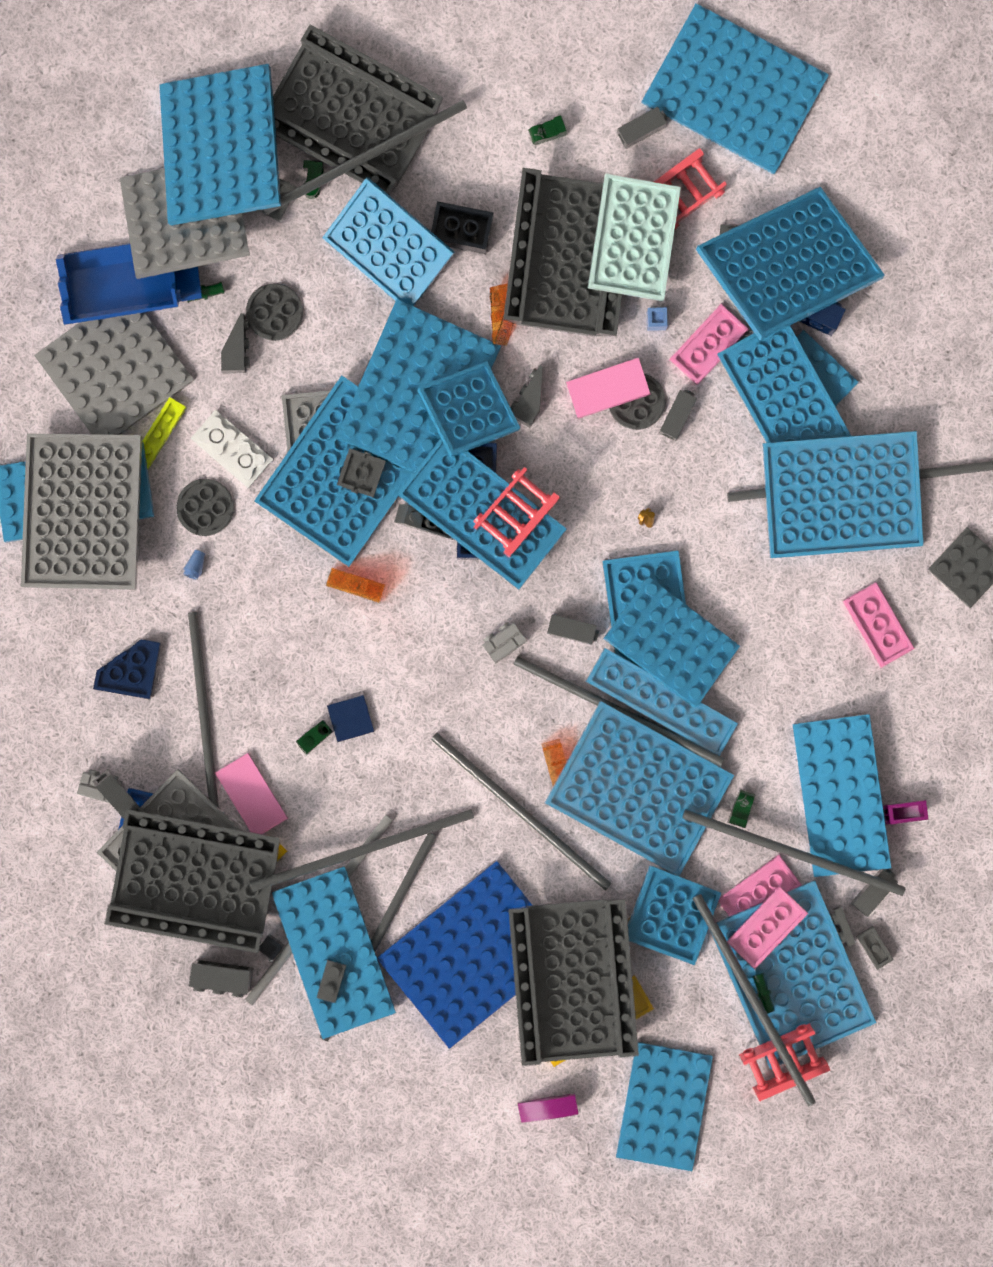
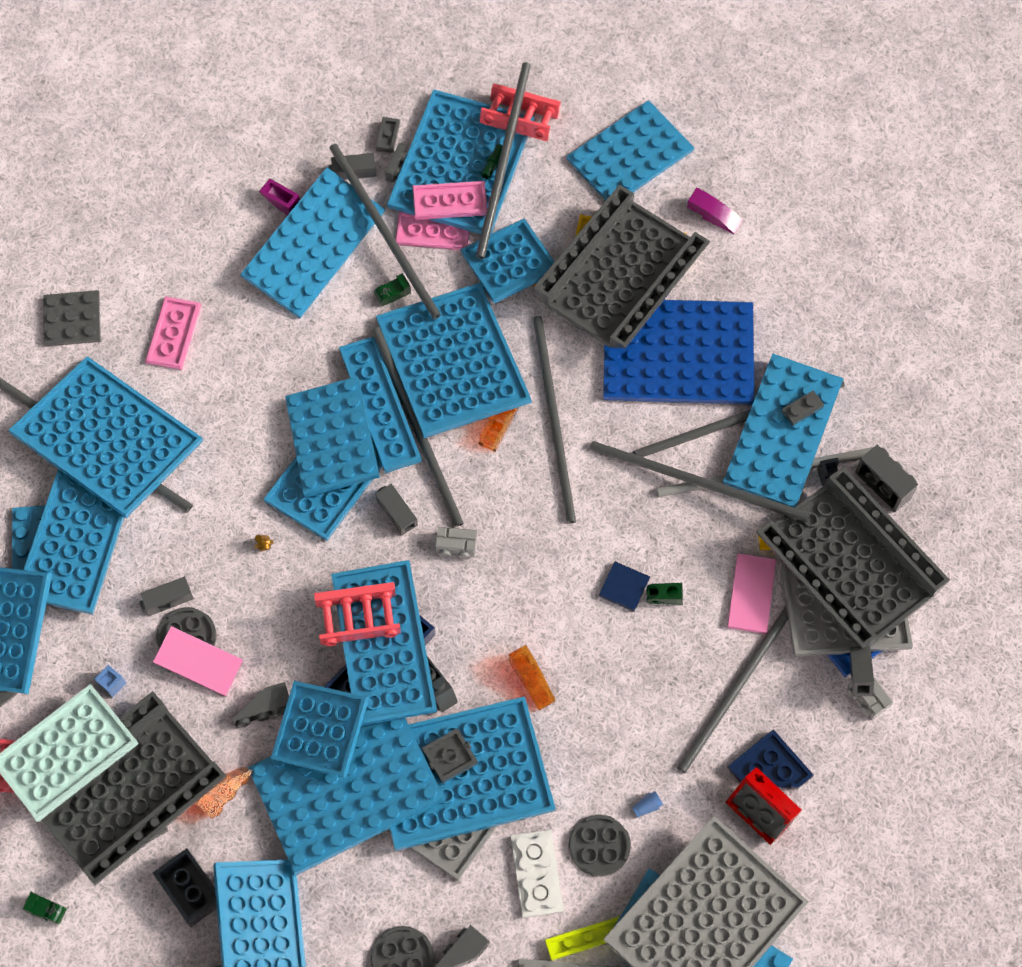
camera: 140 degrees left, 20 degrees down
(108, 631) = (763, 806): none -> piece
(700, 351) = (90, 632): bright pink tile -> none

